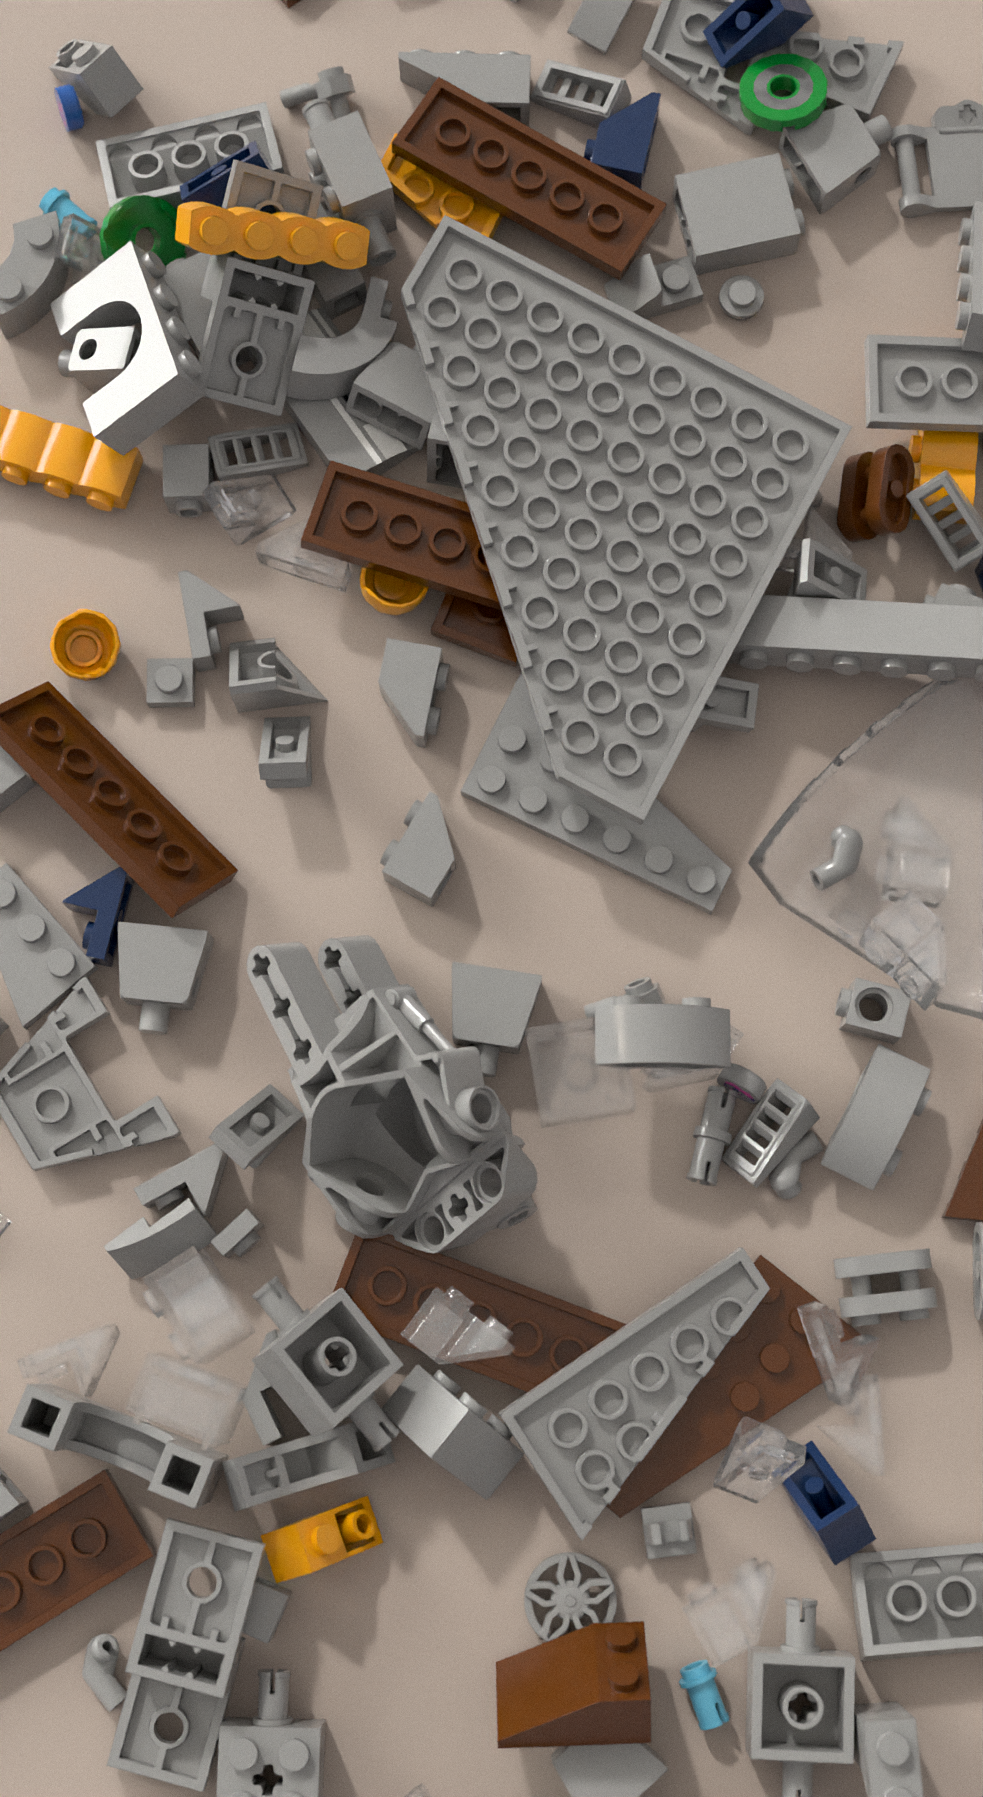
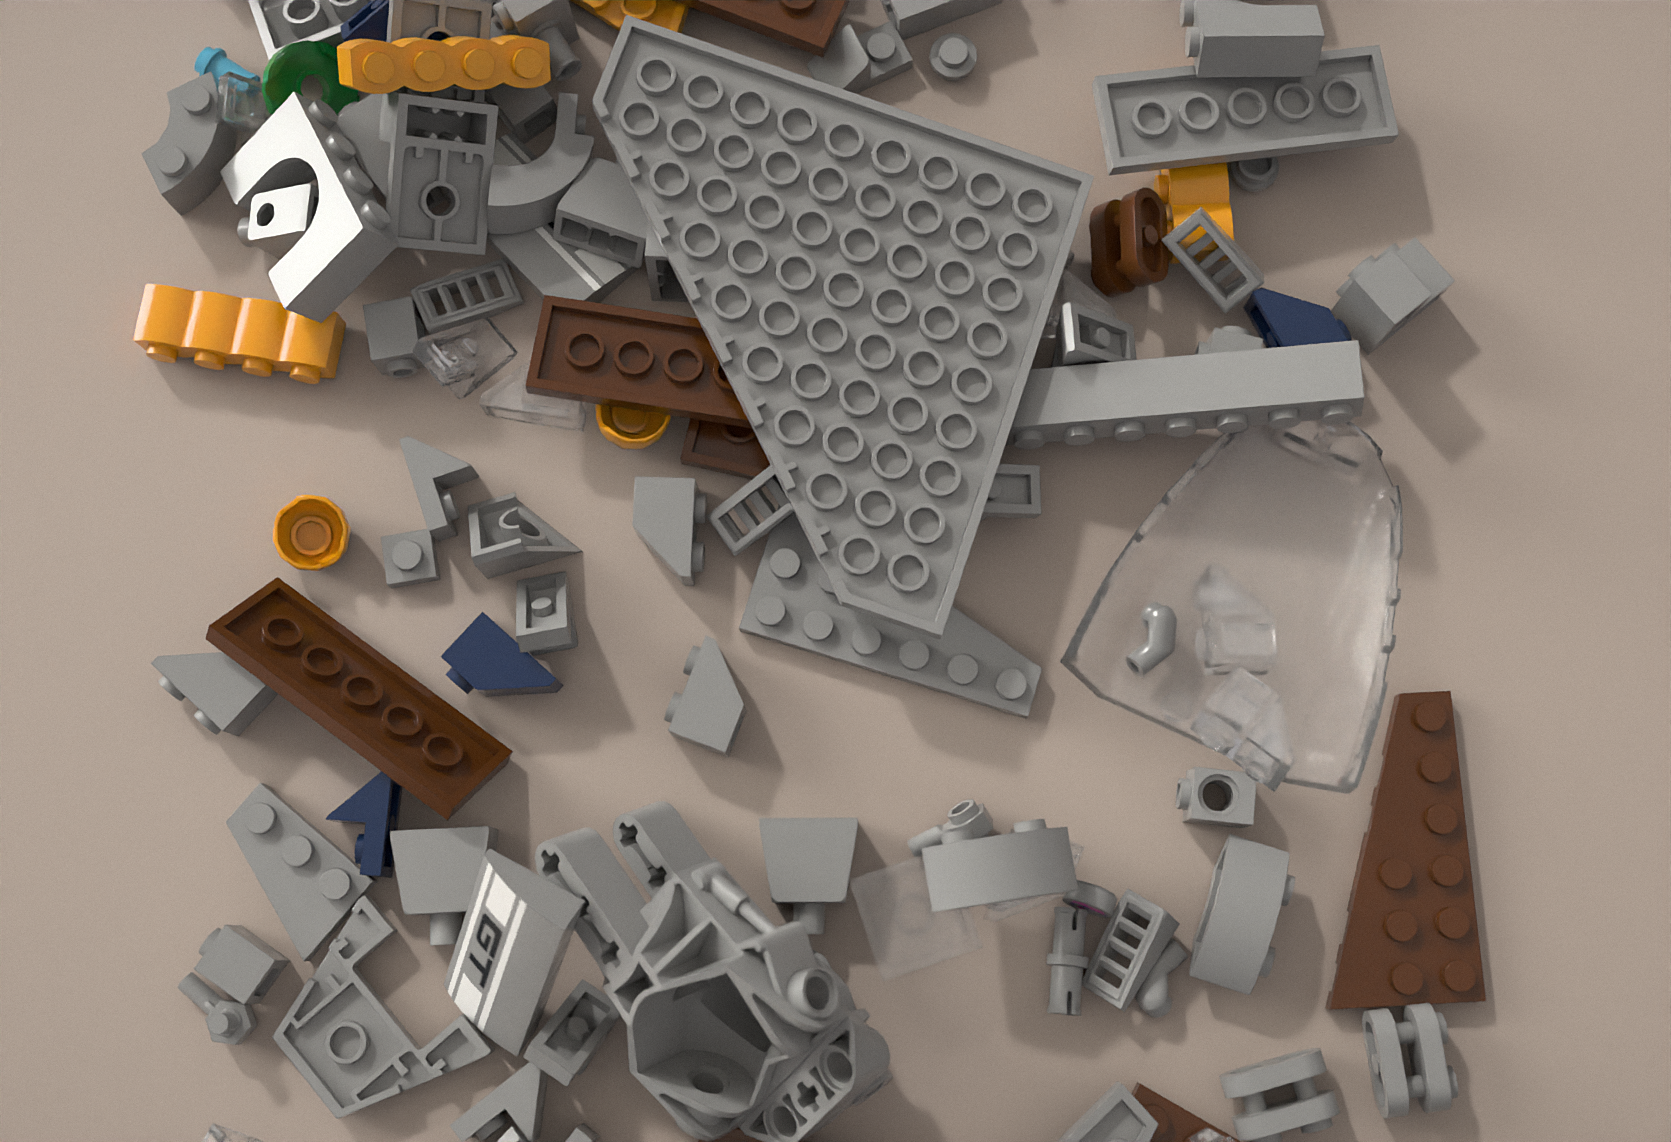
camera: 10 degrees left, 0 degrees up
(212, 1040) = (510, 950): none -> light grey slope
(234, 788) = (492, 663): none -> dark blue slope
(464, 699) = (729, 530): none -> light grey slope

